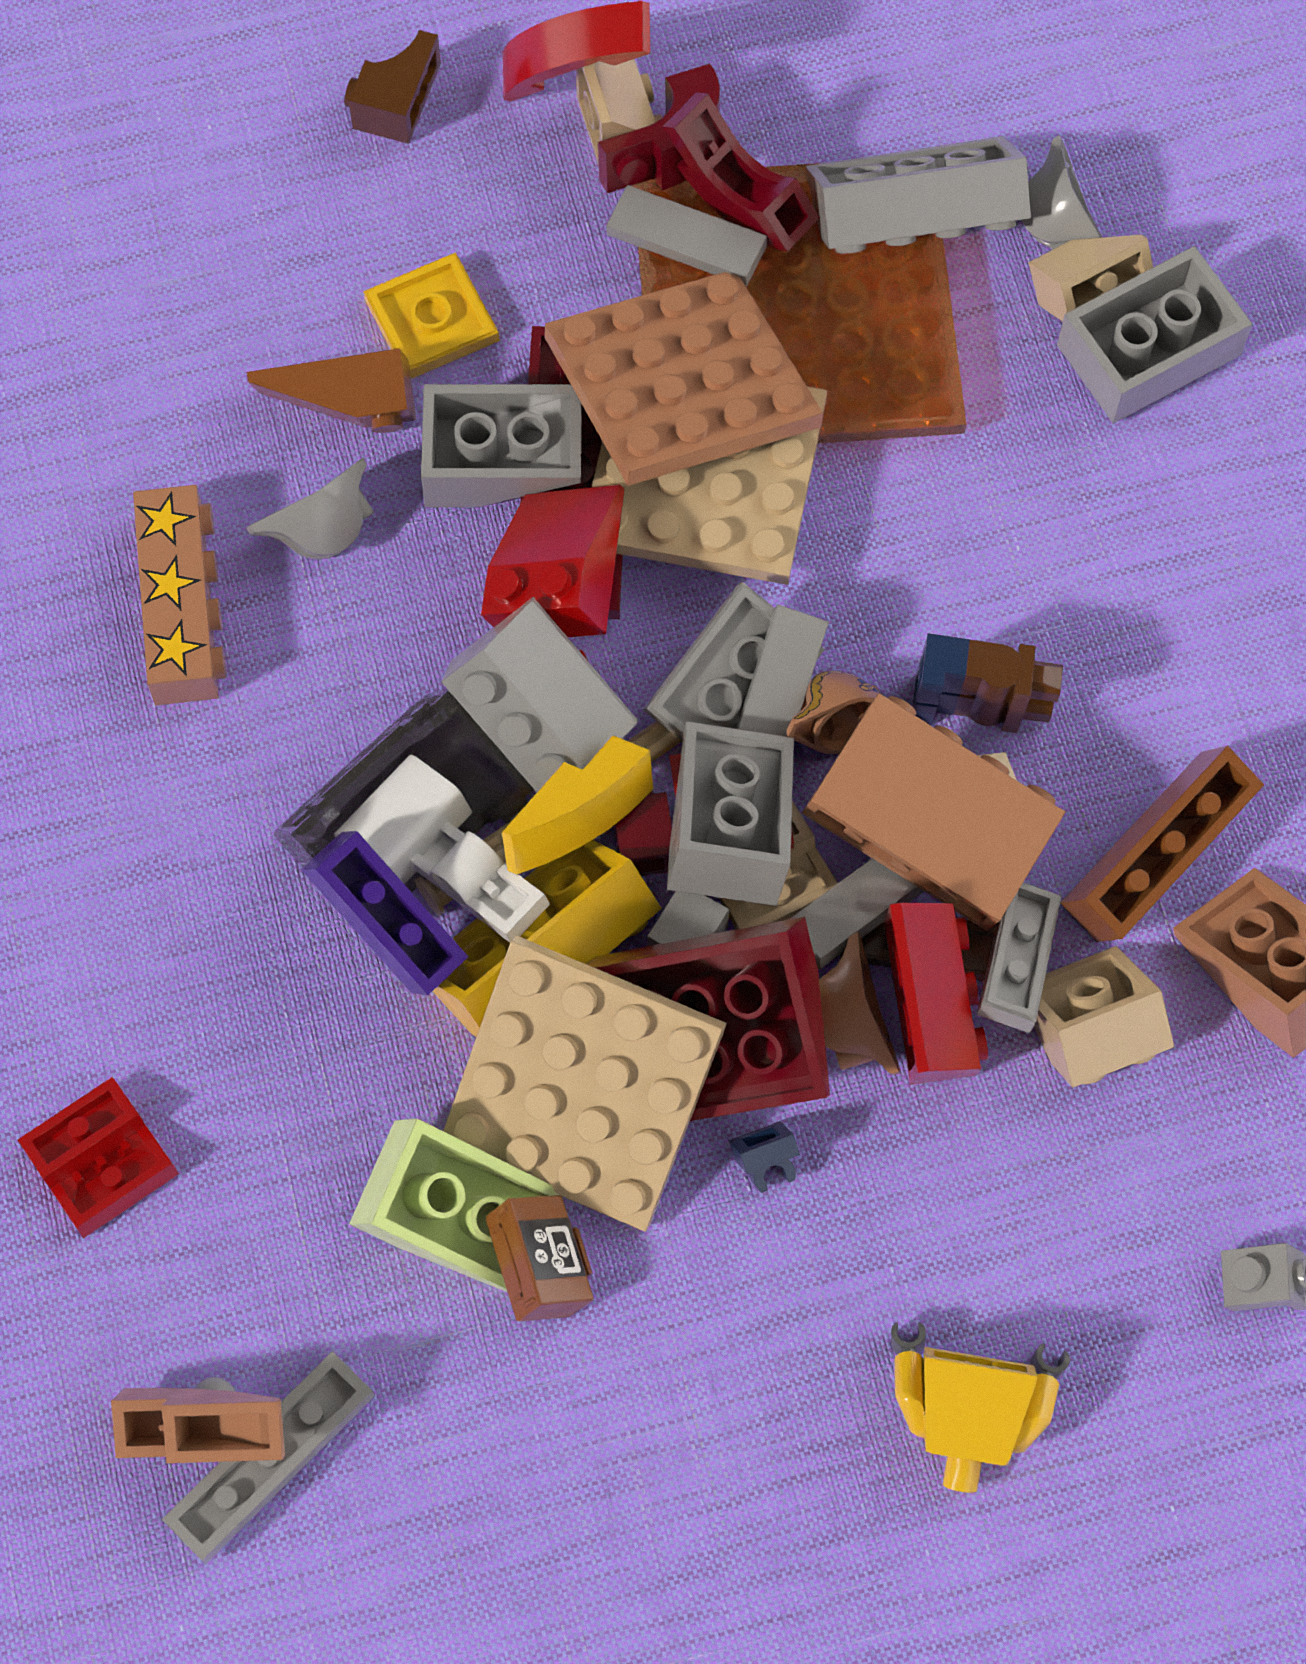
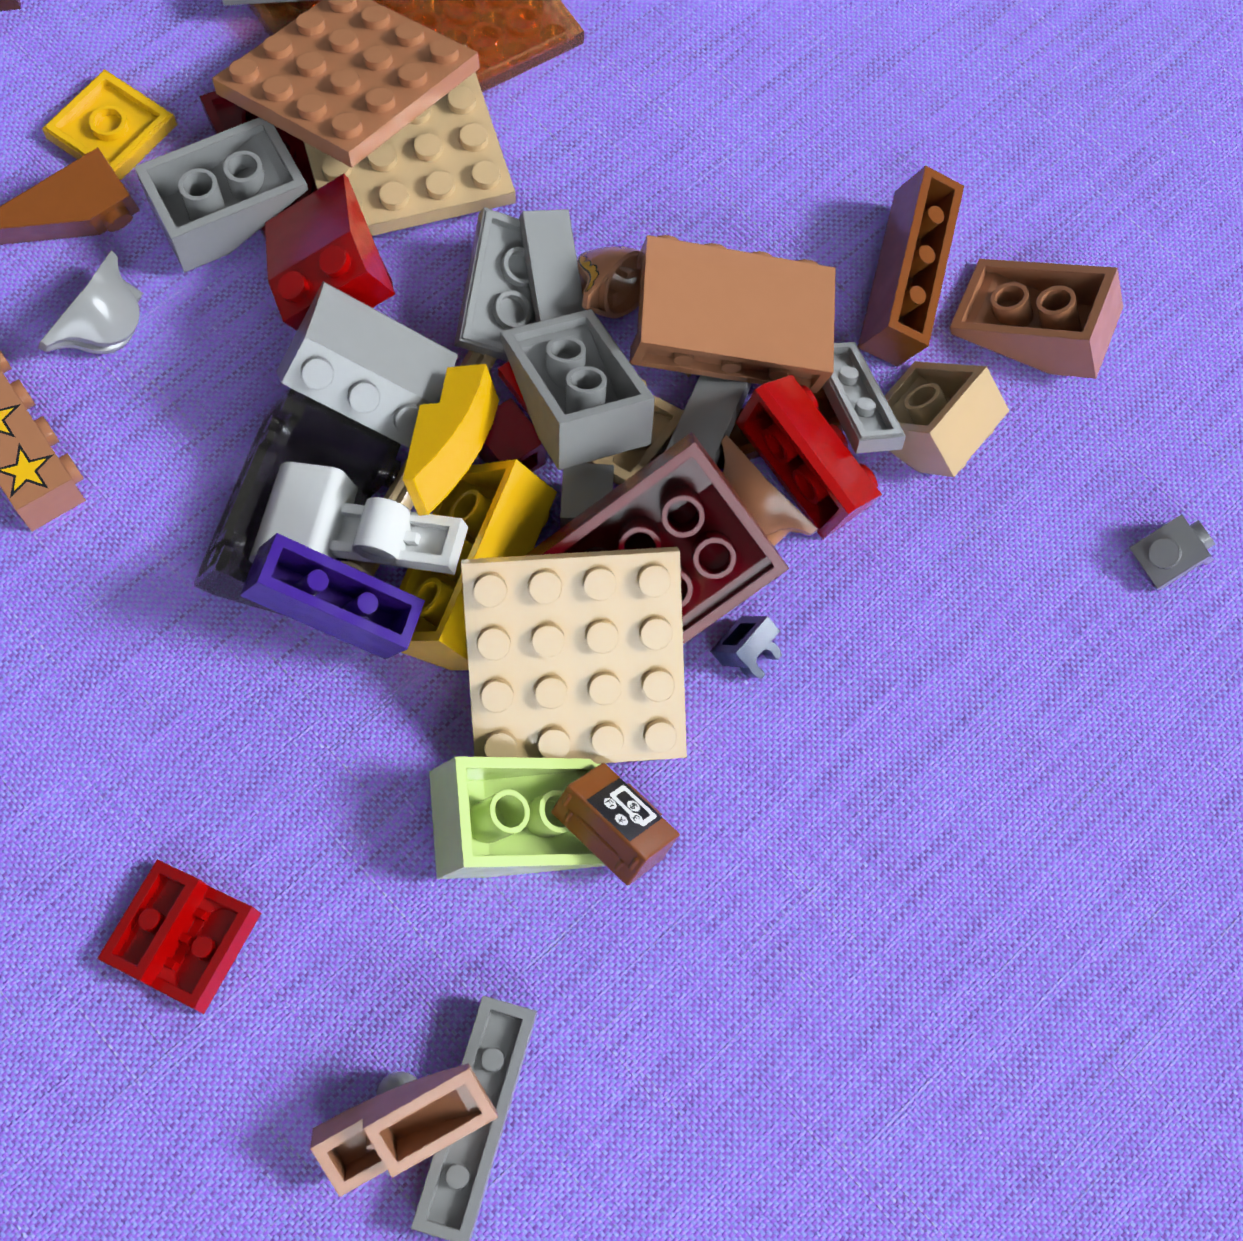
camera: 35 degrees left, 0 degrees up
(973, 1404) = (1024, 760): yellow torso -> none
(984, 682) = (713, 202): reddish brown hips -> none

